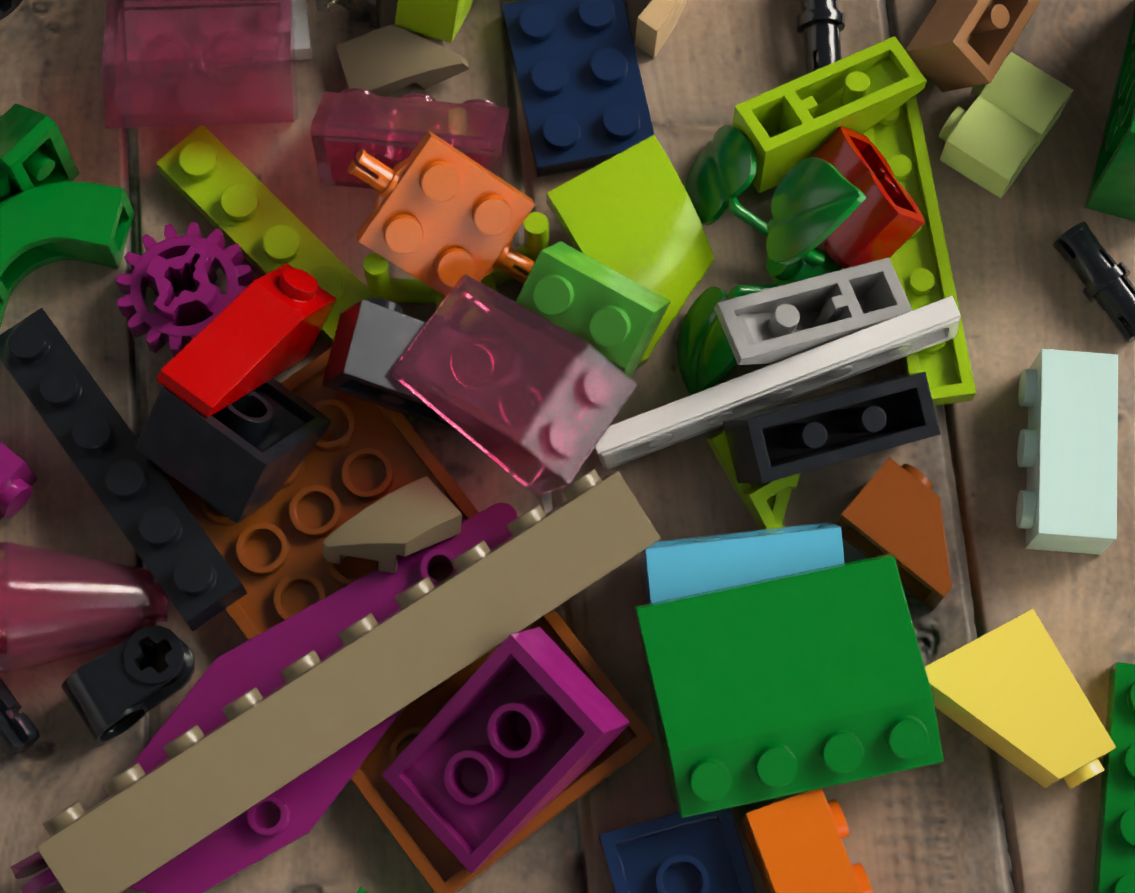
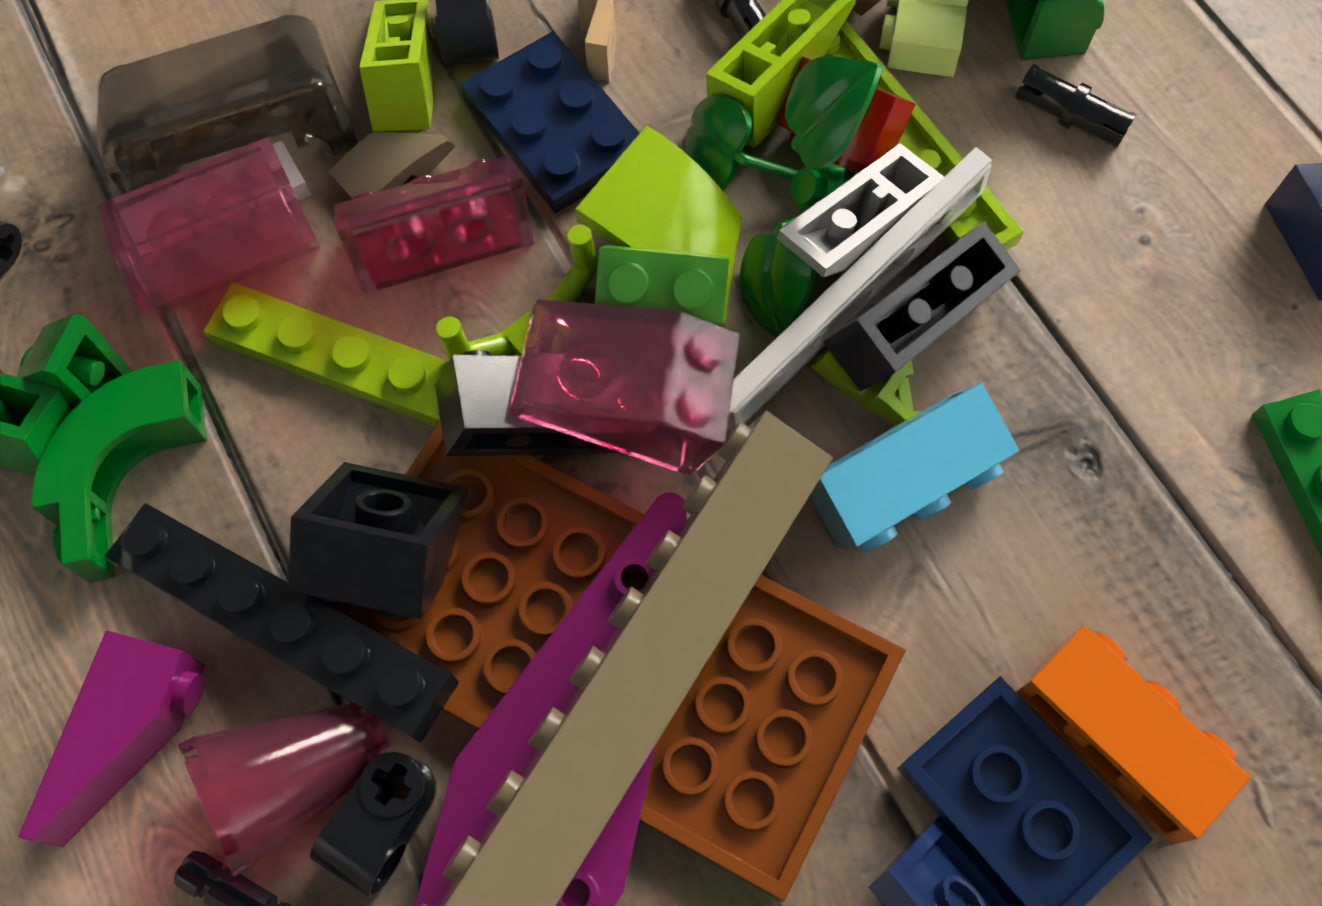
camera: 20 degrees left, 5 degrees down
(176, 265) = (278, 431): magenta gear -> none
(250, 341) = (358, 444): red slope -> none
(396, 526) = (574, 555): dark tan slope -> none
(443, 216) = (491, 259): orange plate -> none
(504, 746) = (776, 723): magenta slope -> none
(787, 685) = (1006, 549): green slope -> none
(902, 518) = (1029, 371): dark orange slope -> none
(1022, 703) = (1208, 474): light yellow slope -> none
(1069, 452) = (1128, 248): light aqua brick -> none

